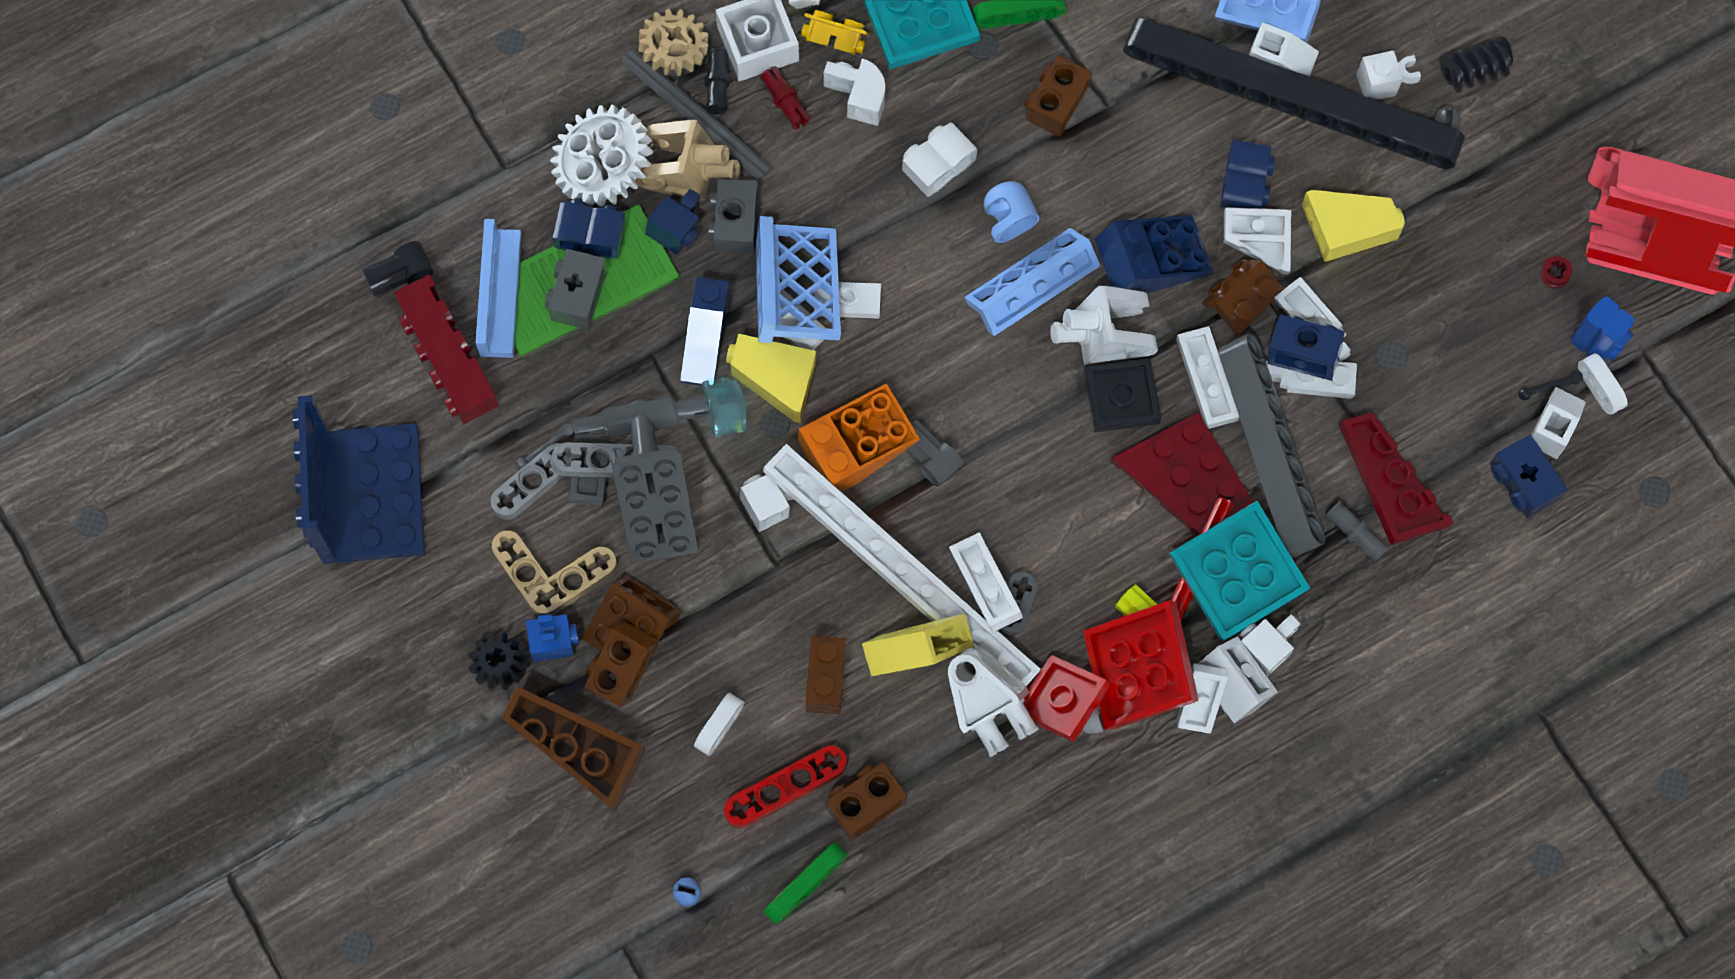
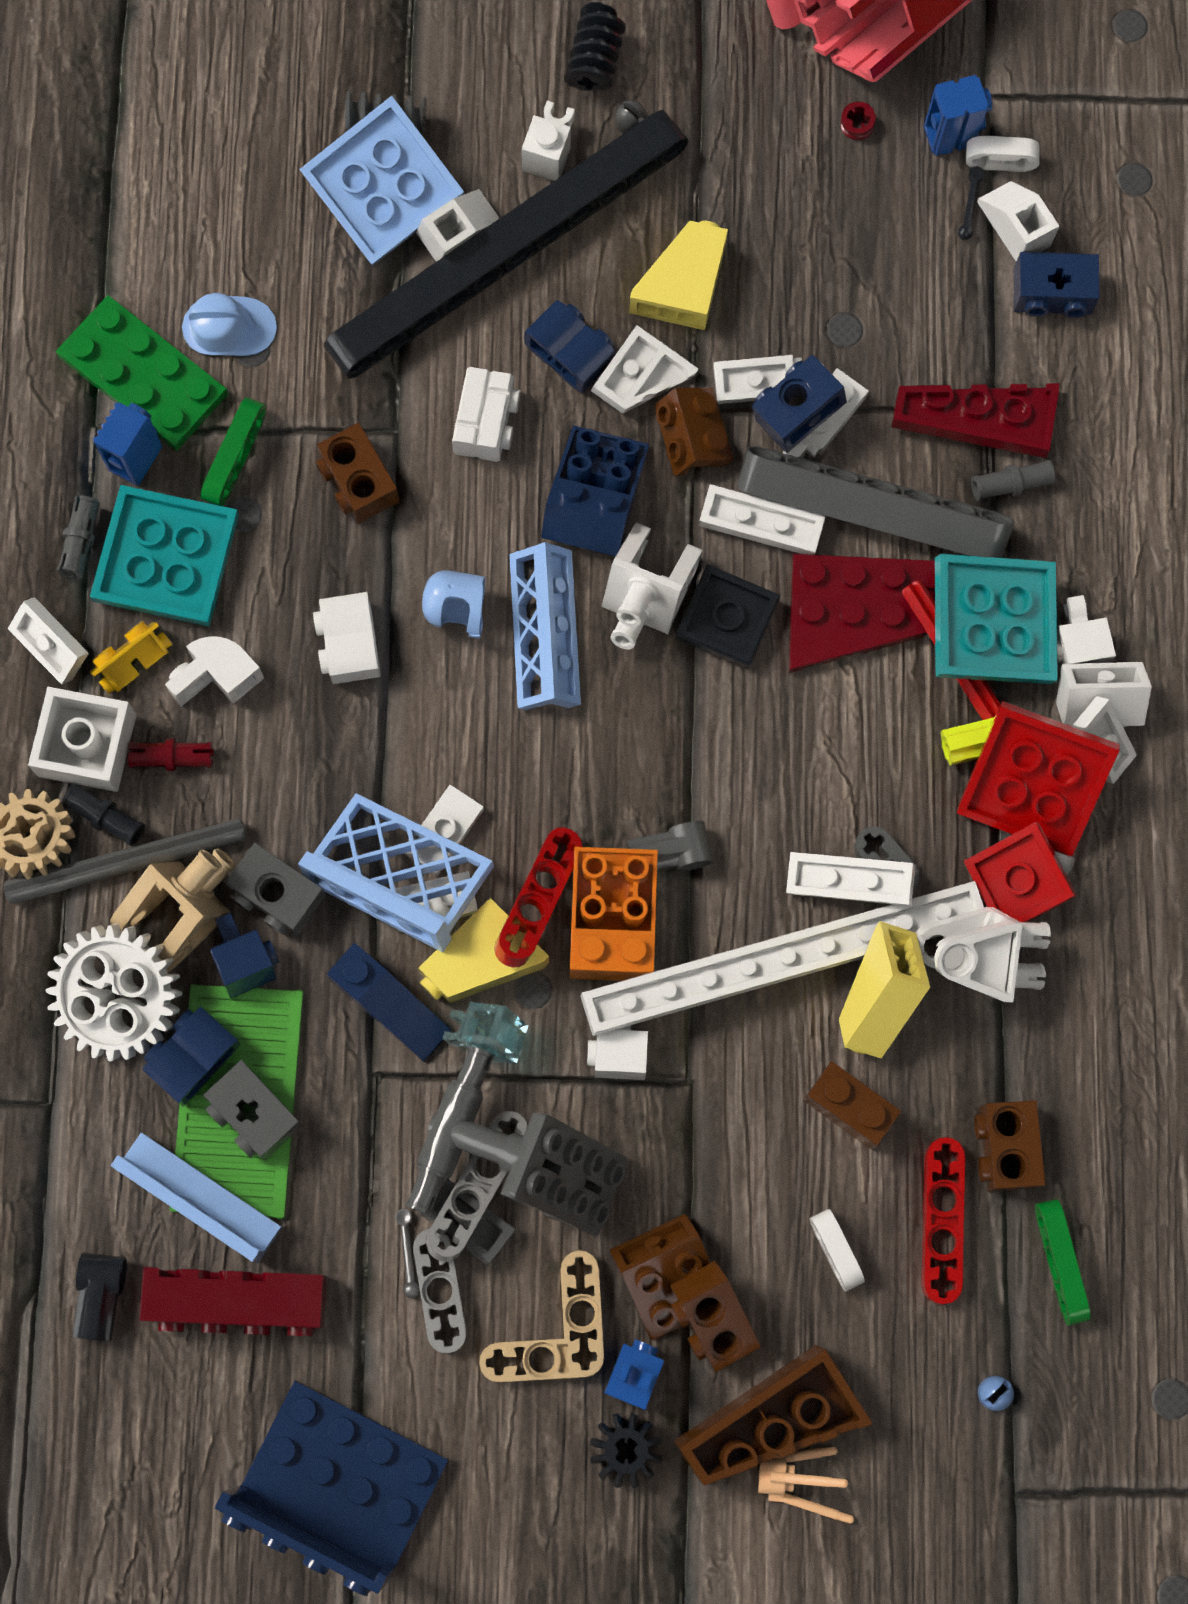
camera: 60 degrees left, 5 degrees up
(540, 774) = (778, 1477): none -> light nougat plant
(837, 378) = (538, 896): none -> red beam
(1157, 151) = (484, 414): none -> white brick

